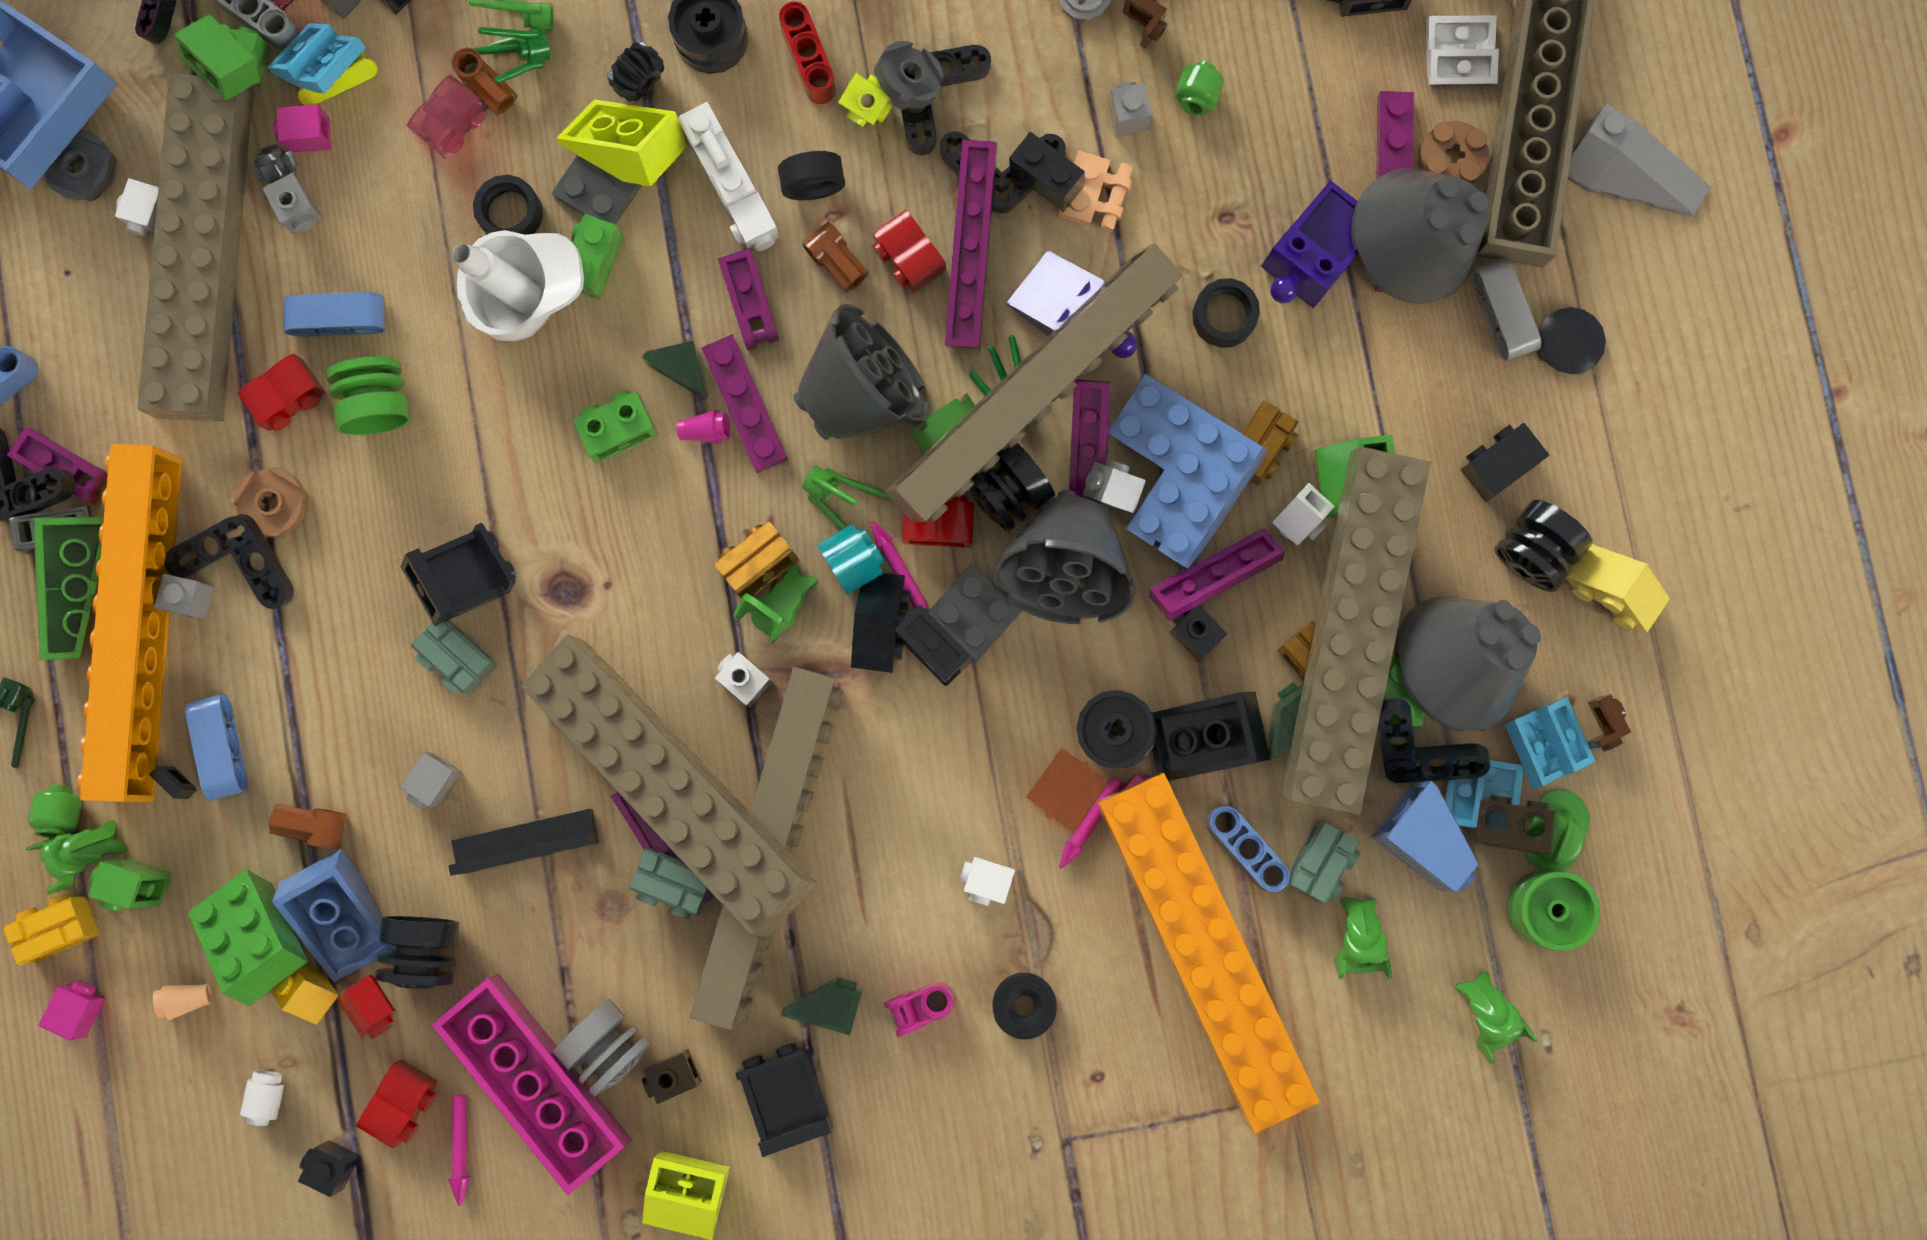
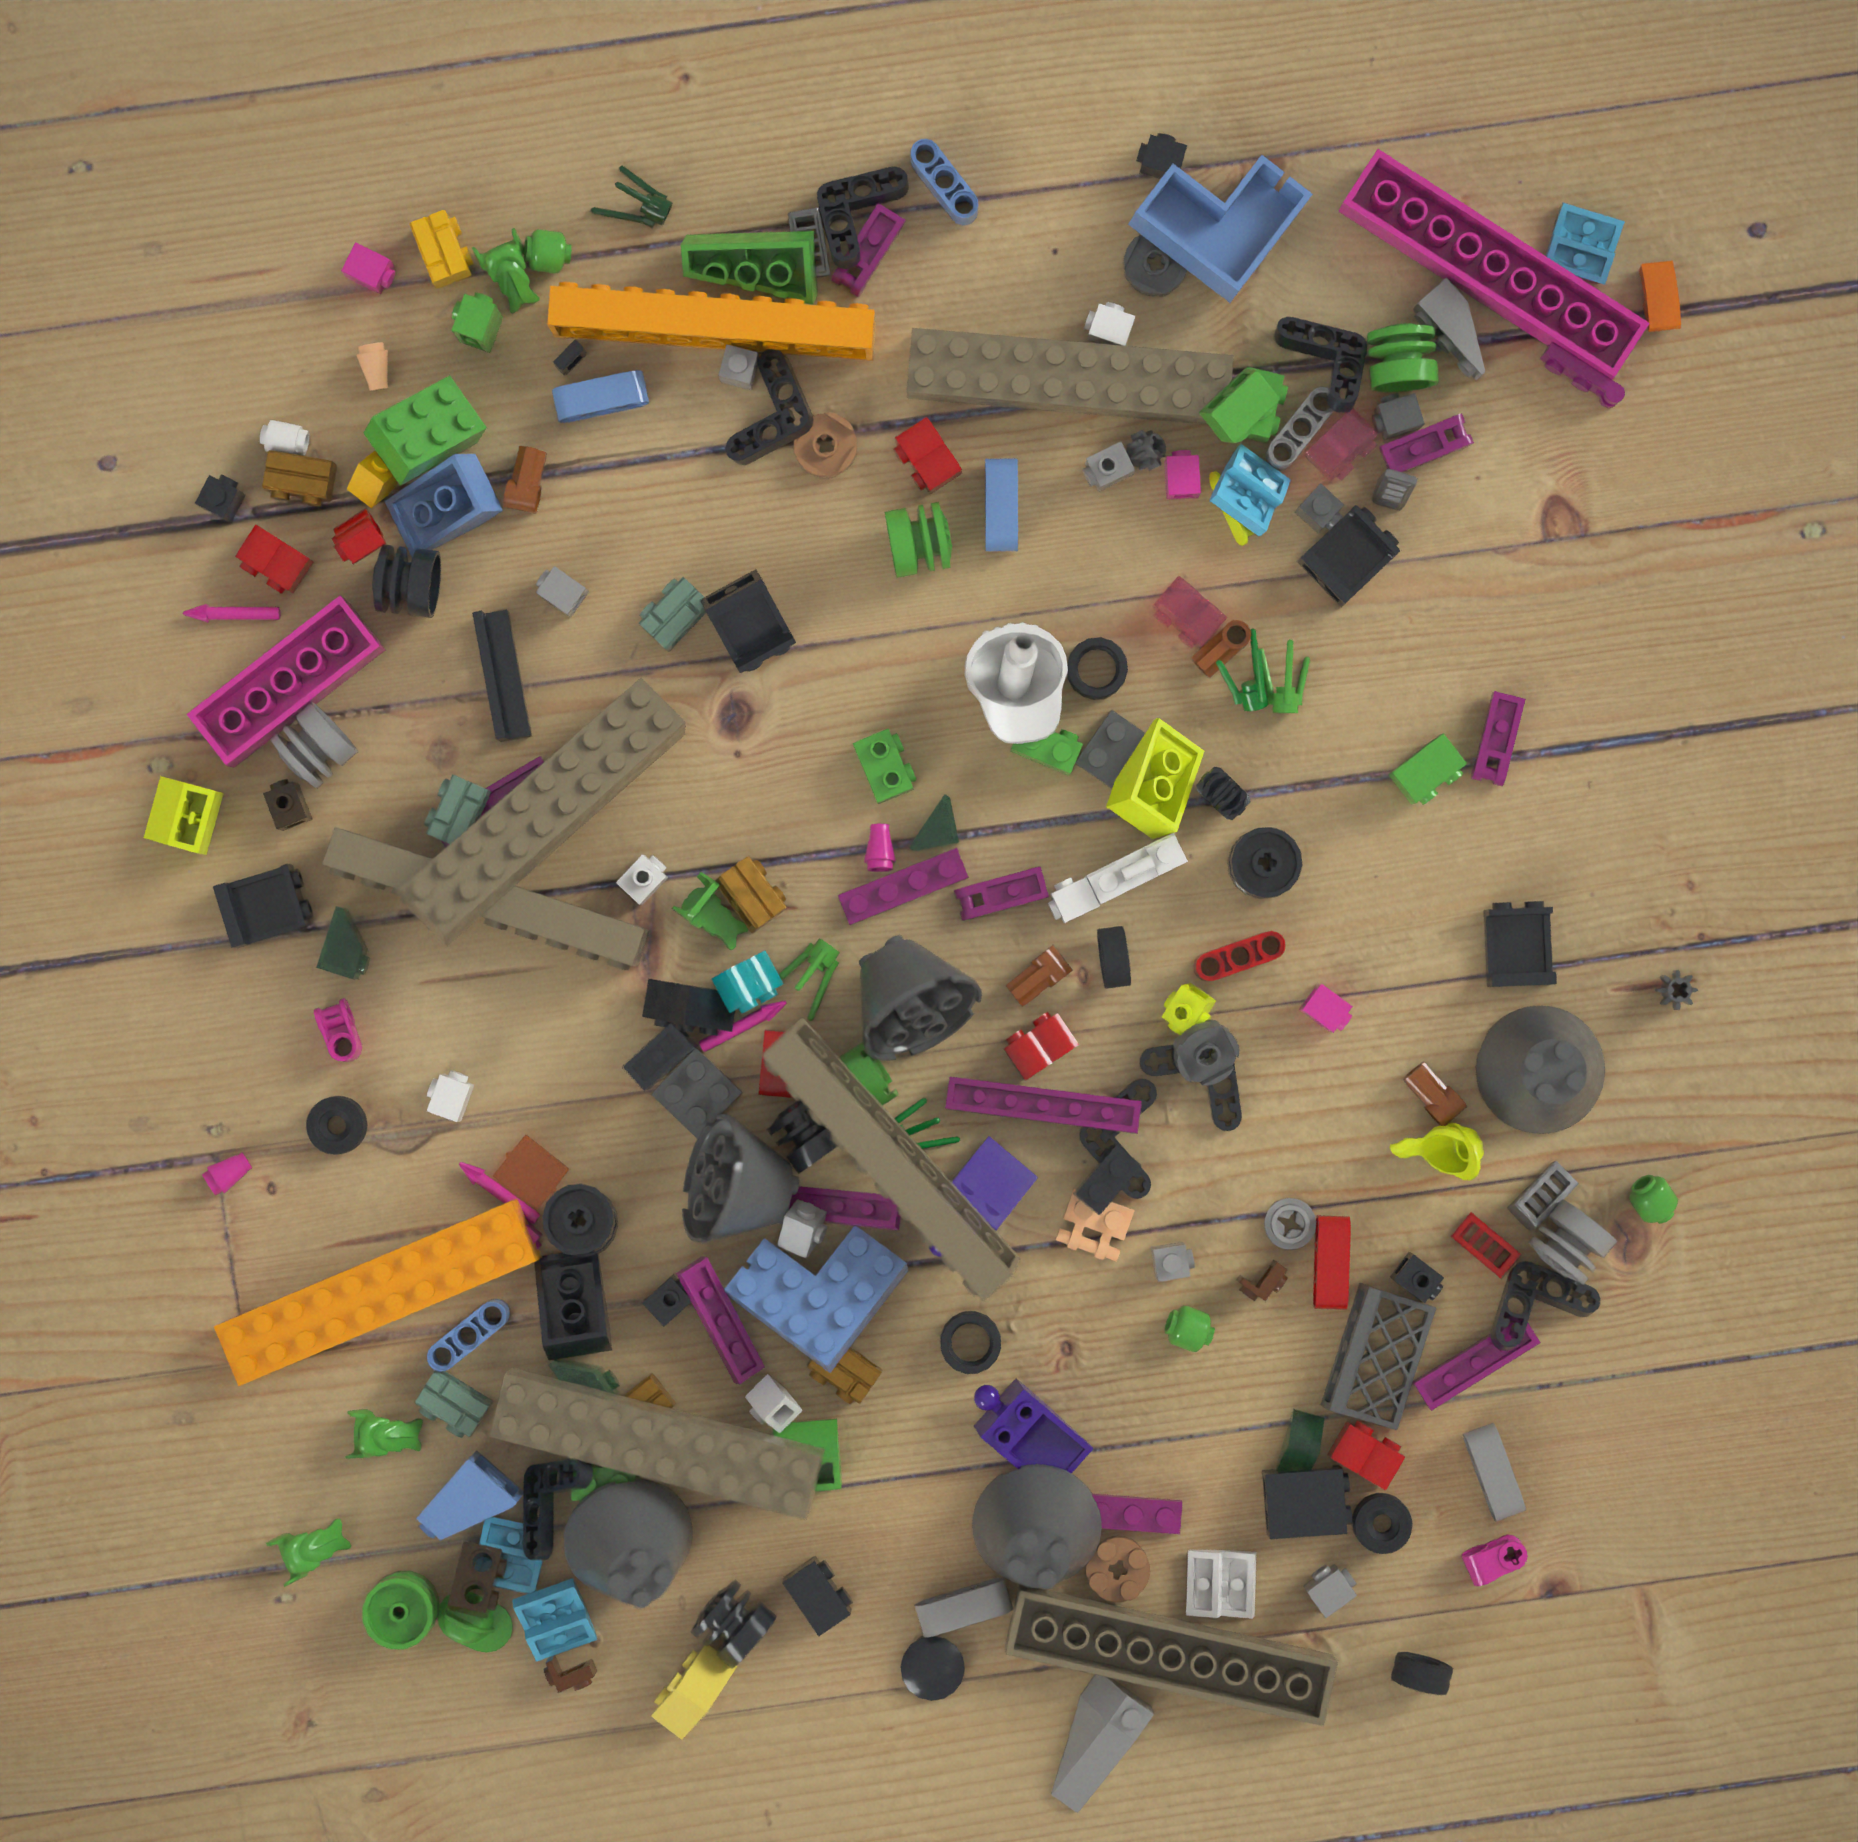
camera: 90 degrees right, 5 degrees up
(305, 1079) = (299, 477): none -> pearl gold brick
(1083, 1127) = (226, 1173): none -> dark pink cone

